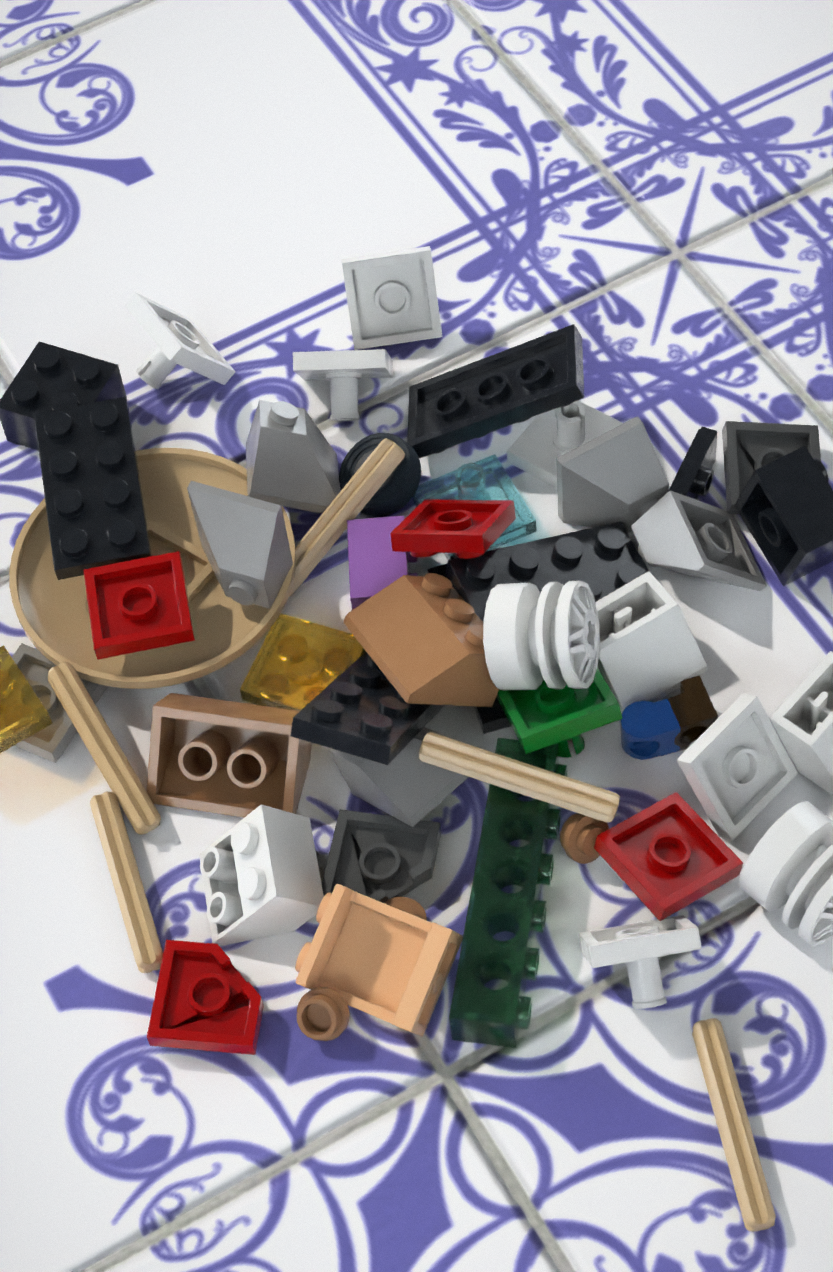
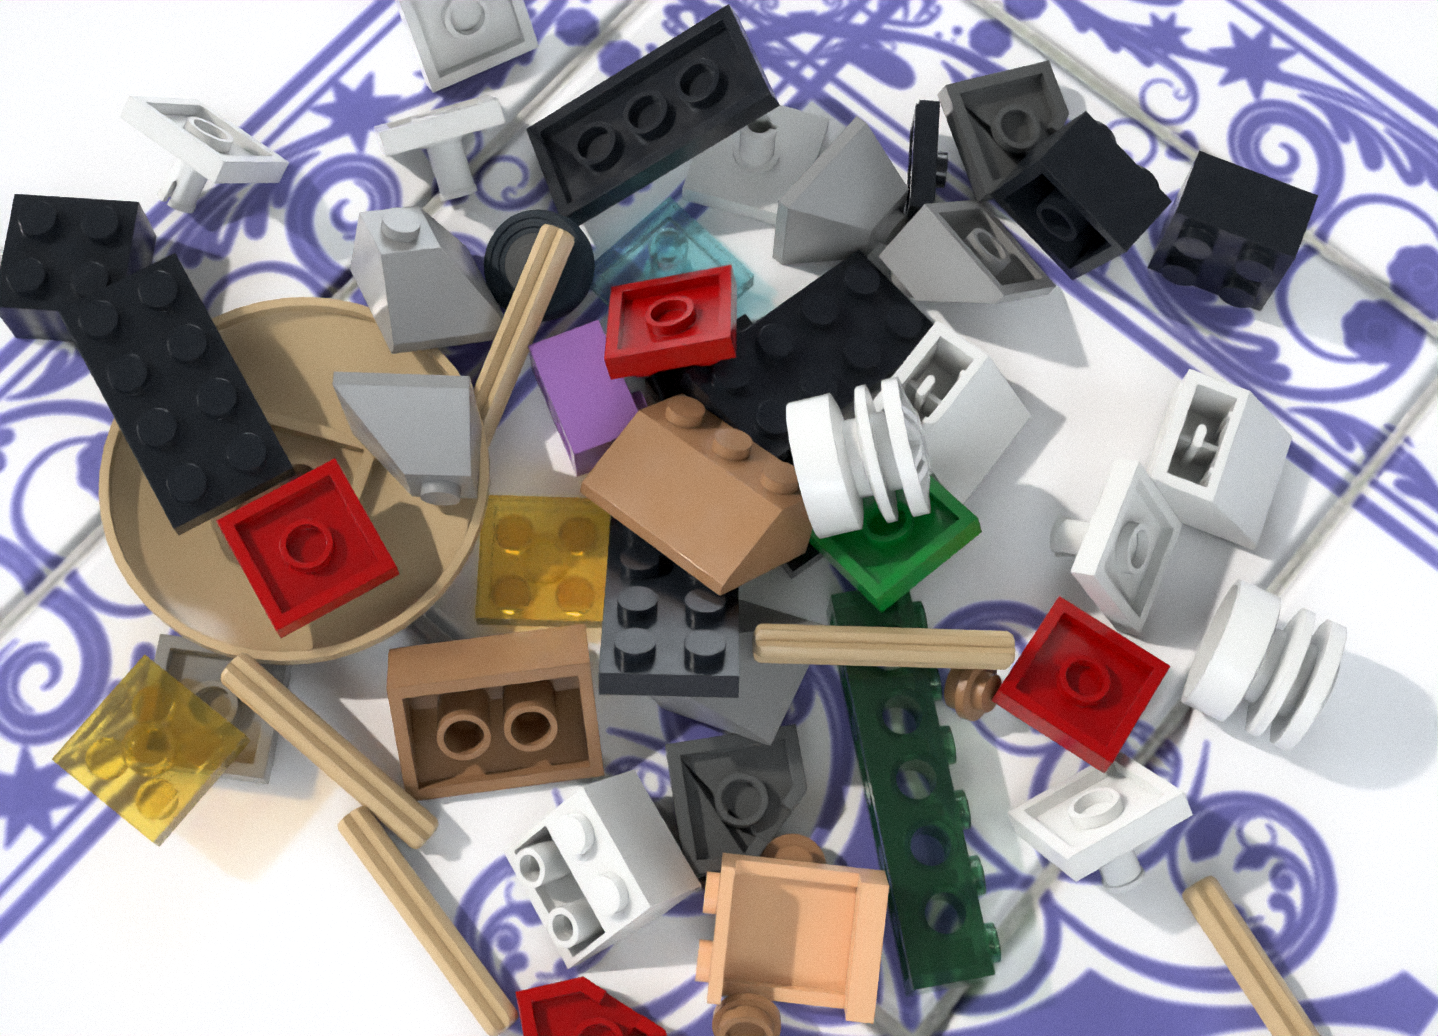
camera: 30 degrees left, 15 degrees up
(668, 724) = (1022, 504): leg -> none

